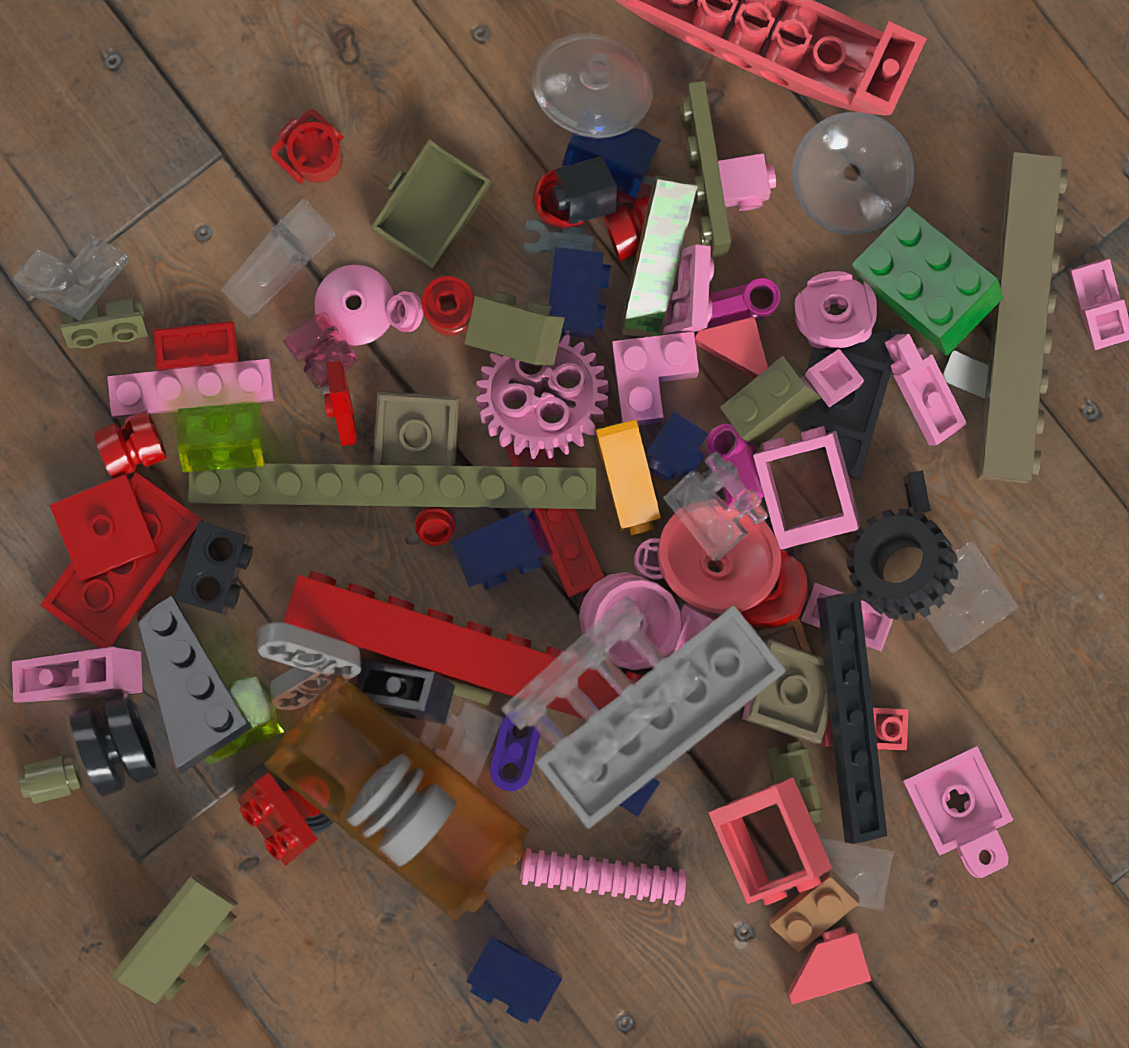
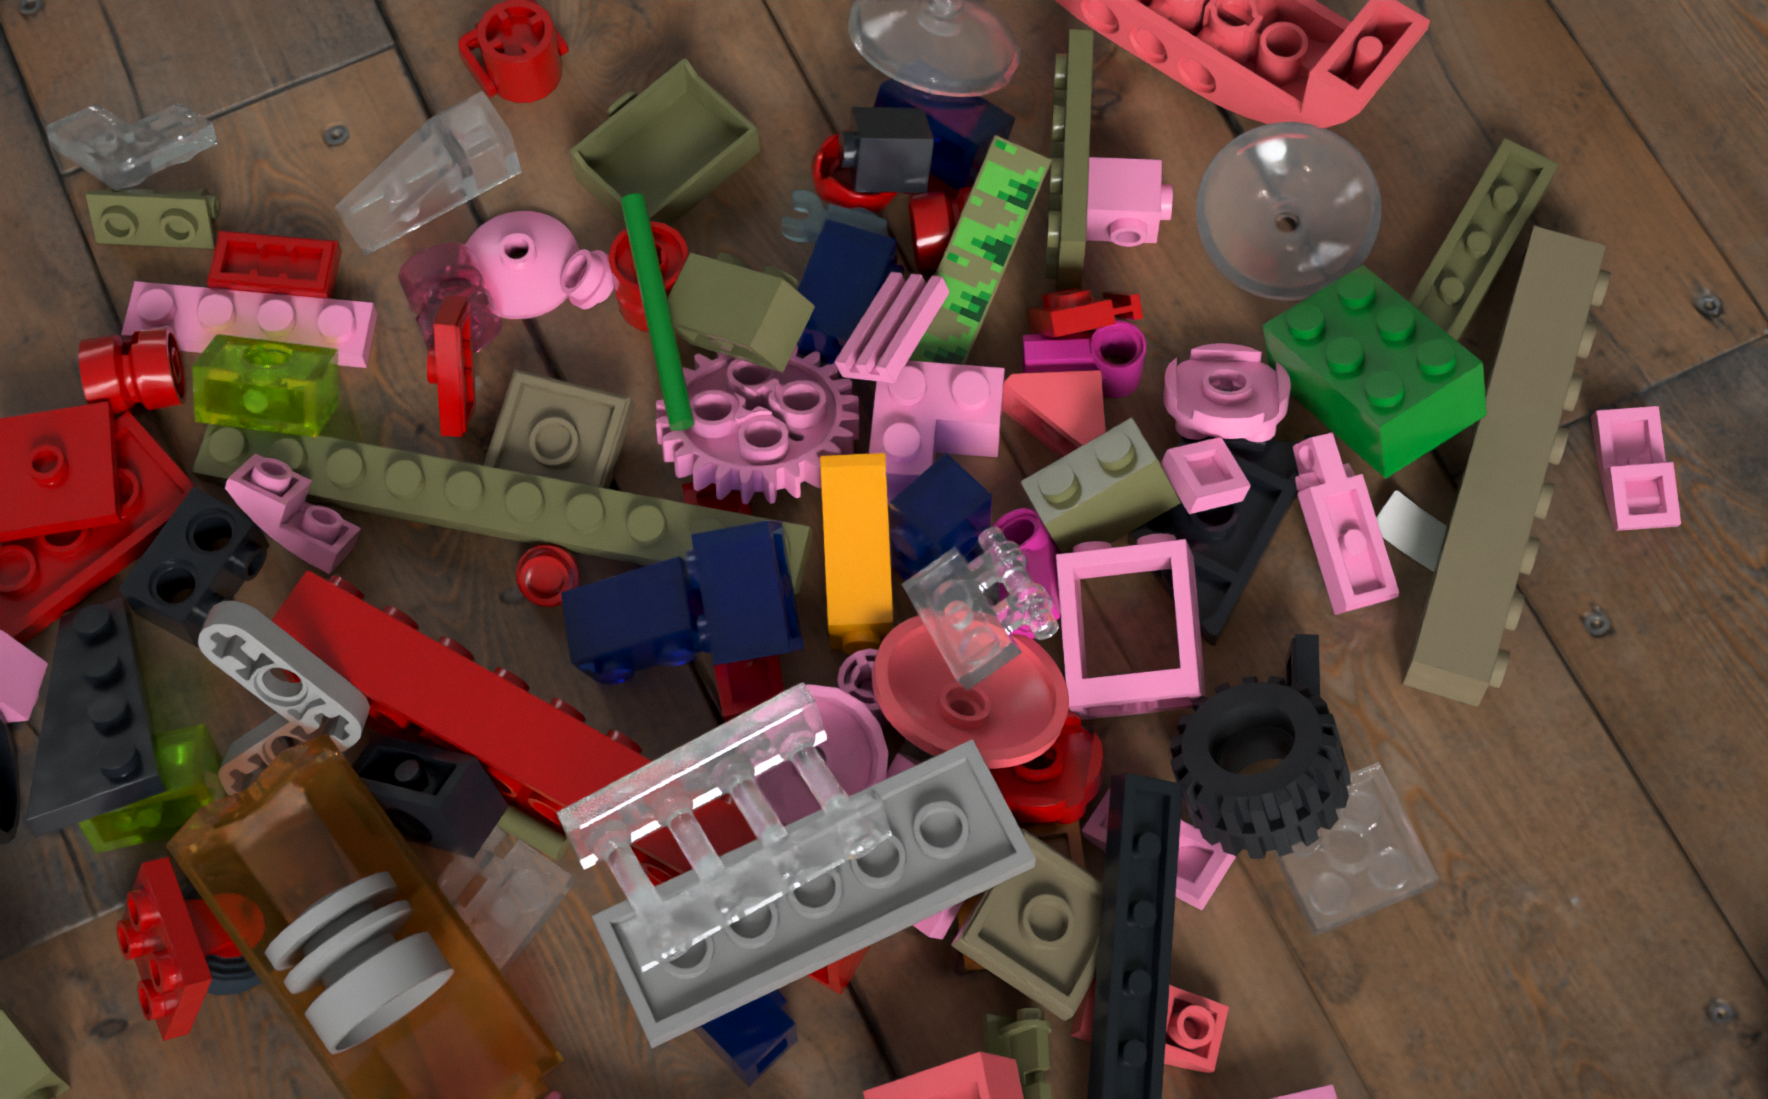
camera: 15 degrees right, 20 degrees down
(272, 528) = (277, 504): none -> bright pink slope
(464, 342) = (657, 312): none -> green bar
(514, 750) = (573, 936): dark purple plate -> none
(568, 525) = (744, 592): none -> clear blue brick
(610, 320) = (884, 325): none -> bright pink tile
(690, 304) = (1010, 328): bright pink plate -> none
(738, 278) = (1077, 311): none -> red plate
(978, 164) = (1483, 237): none -> olive plate

